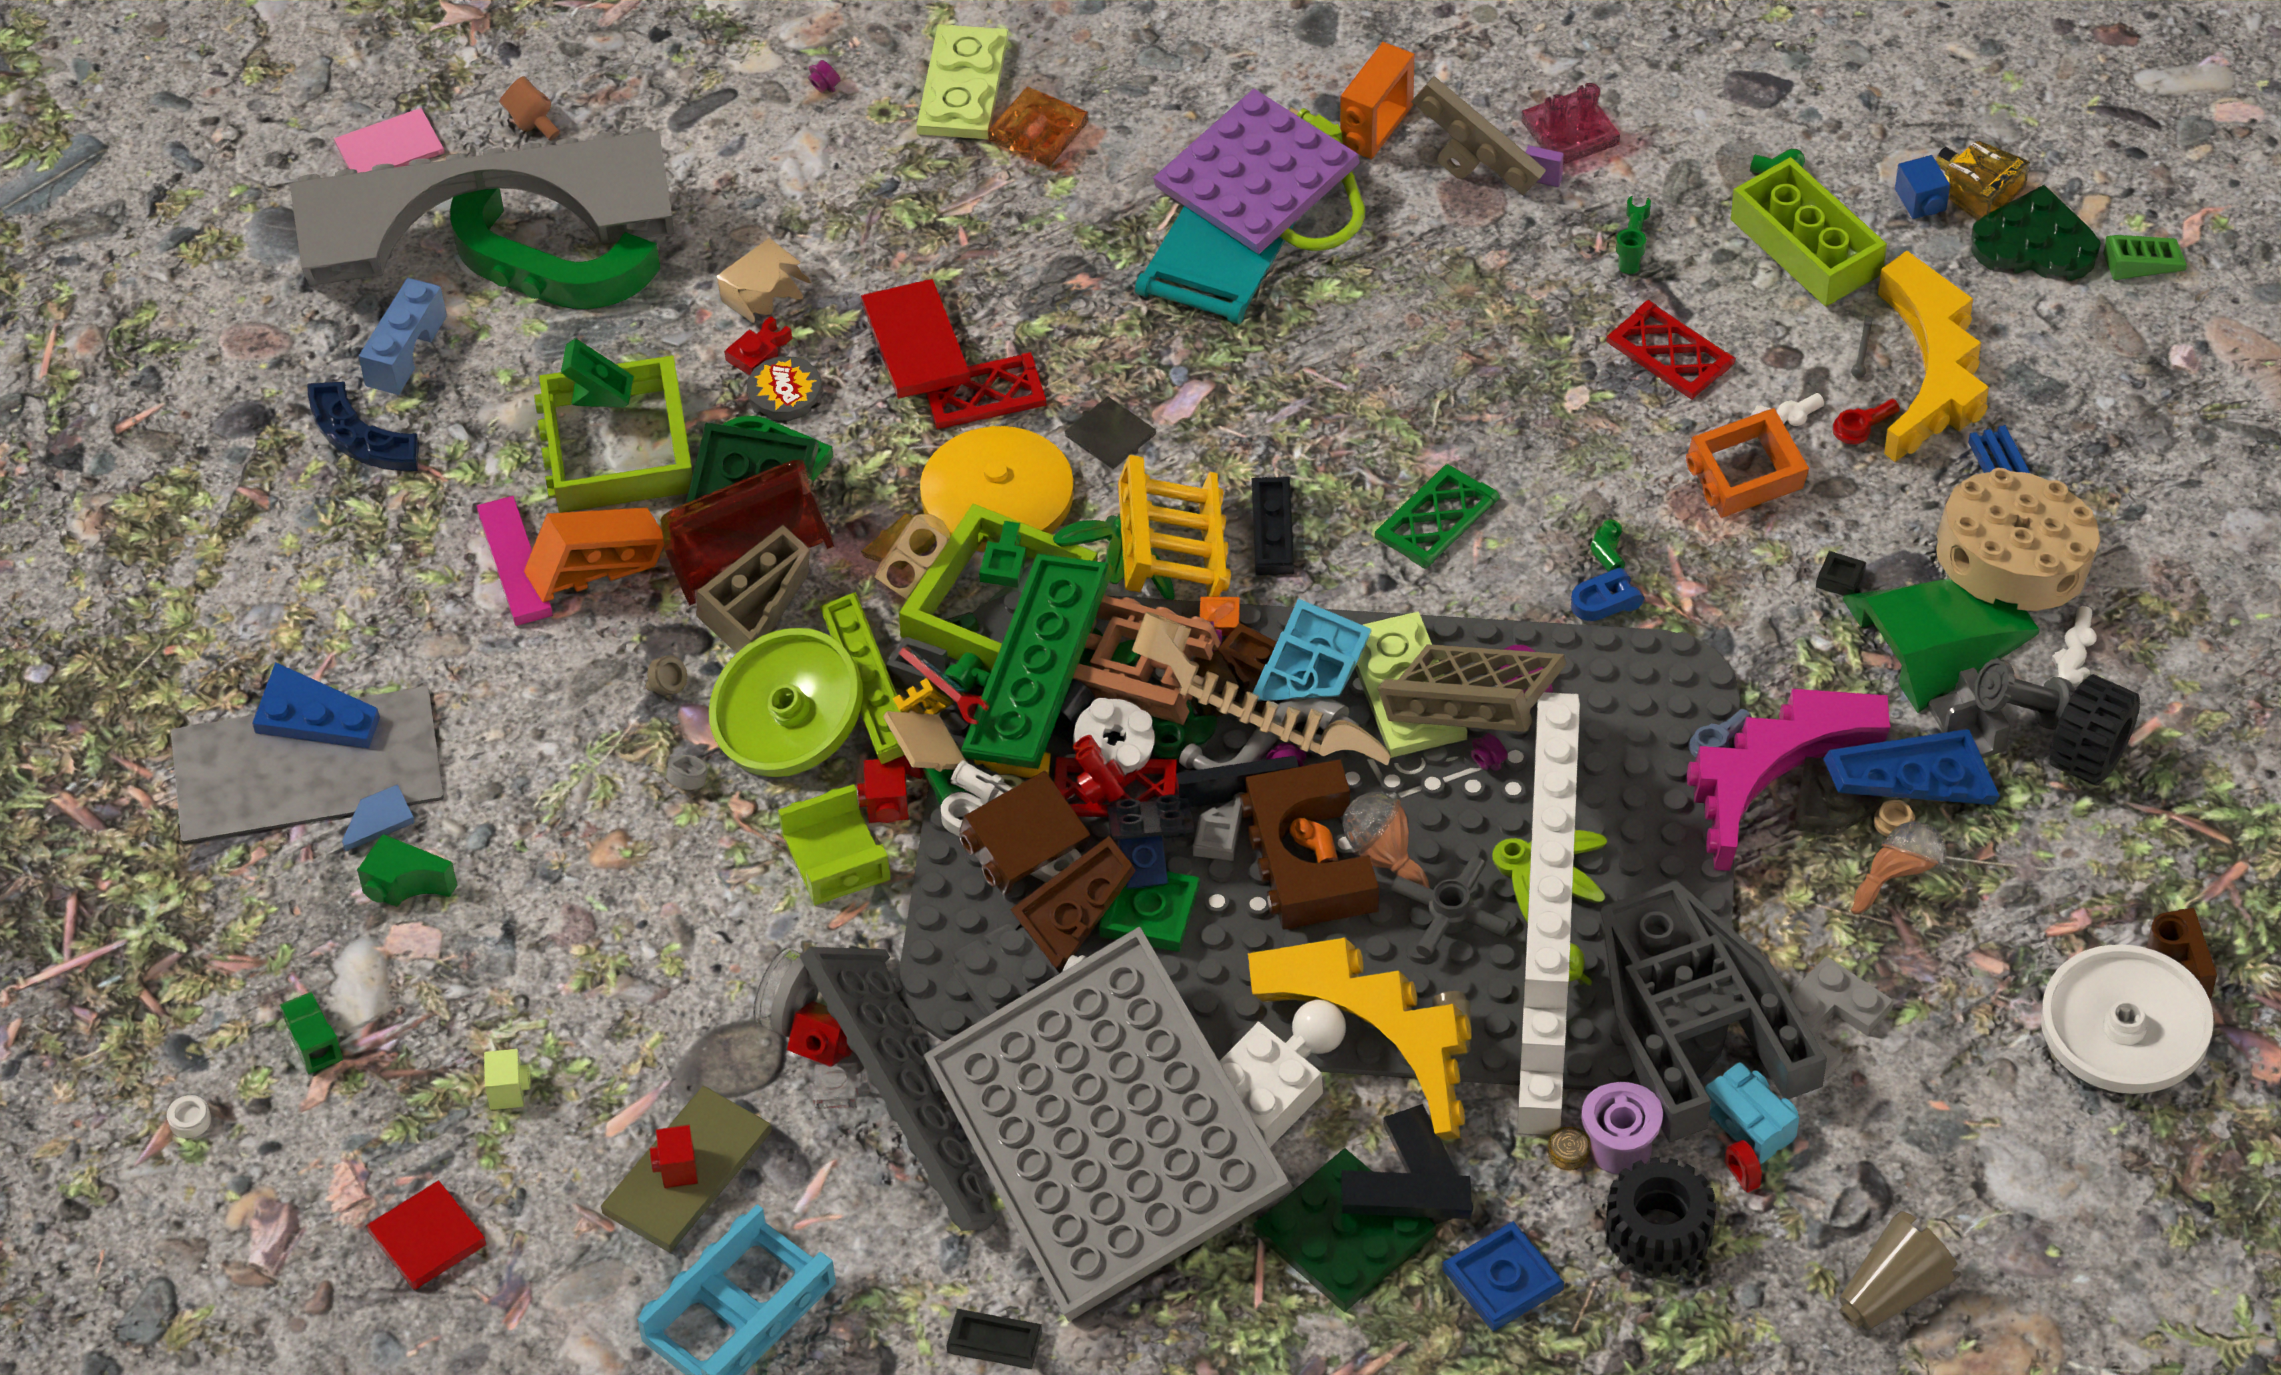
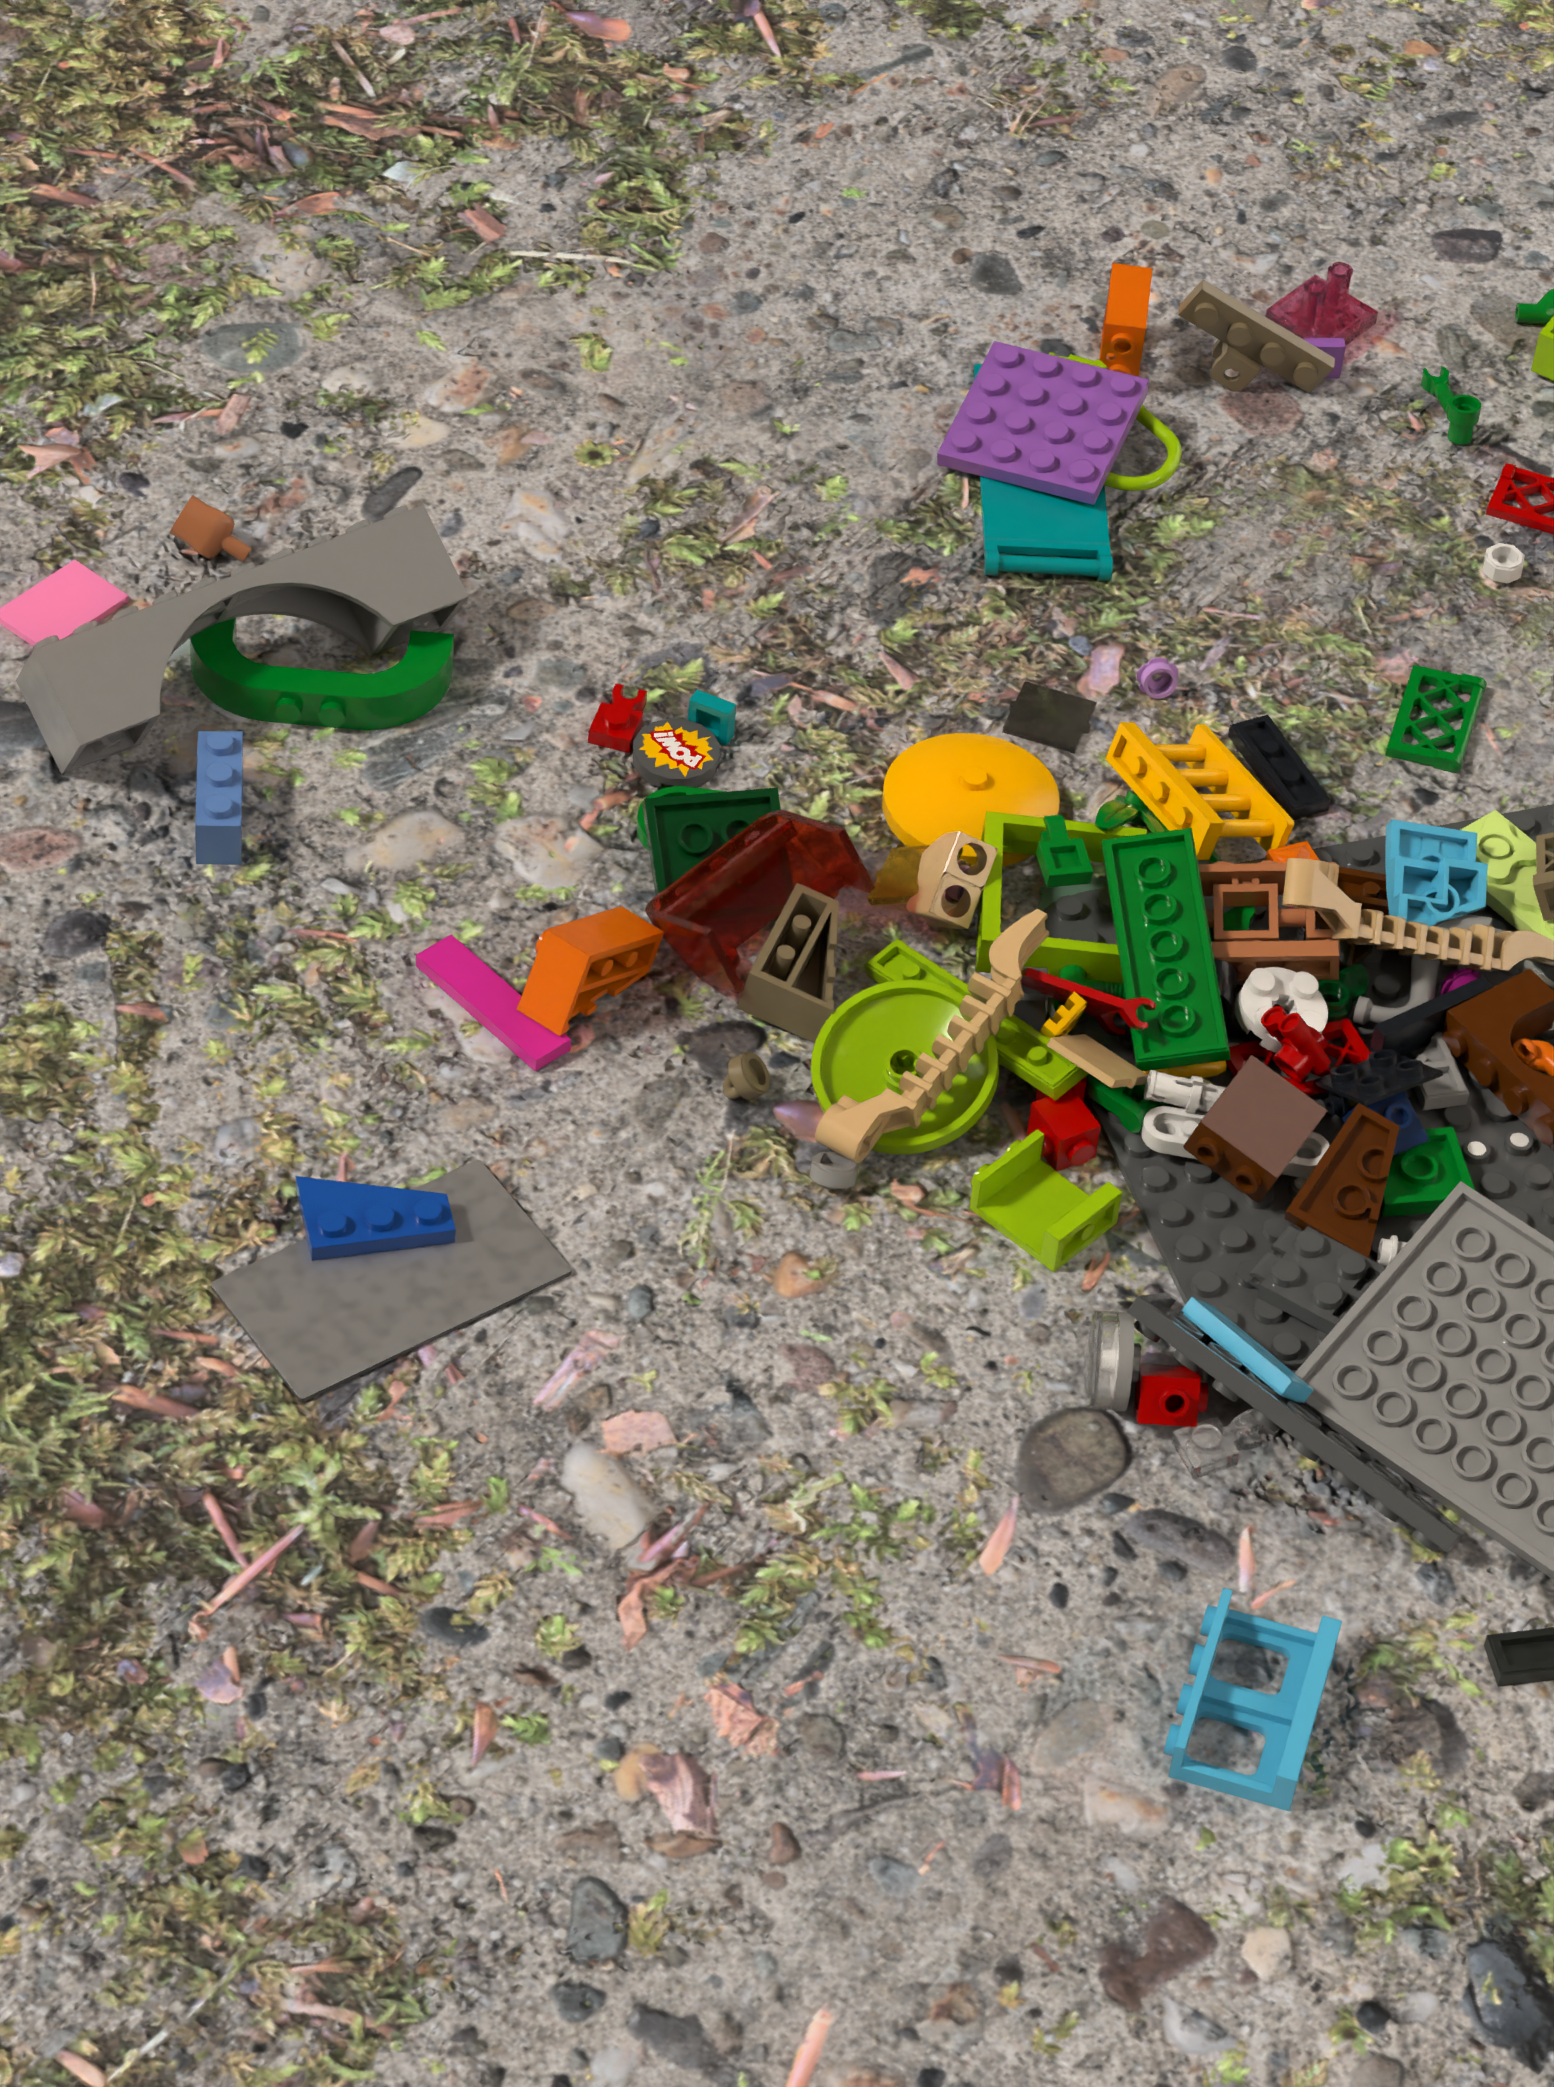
camera: 30 degrees left, 5 degrees down
(188, 1116) = (506, 1693): white tile -> none
(310, 1032) = (593, 1559): green leg -> none
(353, 437) = (245, 923): dark blue tile -> none
(376, 816) = (518, 1309): medium blue tile -> none
(401, 871) = (591, 1356): green arch -> none
(426, 1235) = (863, 1737): red tile -> none
(505, 1079) = (849, 1543): yellowish green plate -> none
(595, 377) = (486, 785): green slope -> none
(622, 487) = (505, 782): lime window -> none
(674, 1156) = (1101, 1565): red plate -> none
(715, 742) = (856, 1127): none -> tan piece
(722, 1142) = (1102, 1581): olive tile -> none
(758, 278) = (581, 646): tan piece -> none
(823, 77) = (513, 430): magenta plate -> none
(828, 364) = (714, 714): none -> teal plate
(904, 1016) = (1247, 1350): none -> medium azure tile
(915, 338) = (789, 669): red tile -> none
(962, 81) = (664, 405): yellowish green piece -> none
(1006, 405) = (889, 732): red window -> none
(1038, 126) = (778, 431): clear orange plate -> none
(1213, 428) = (1161, 686): none -> lavender plate
(1584, 391) = (1503, 563): none -> white tile

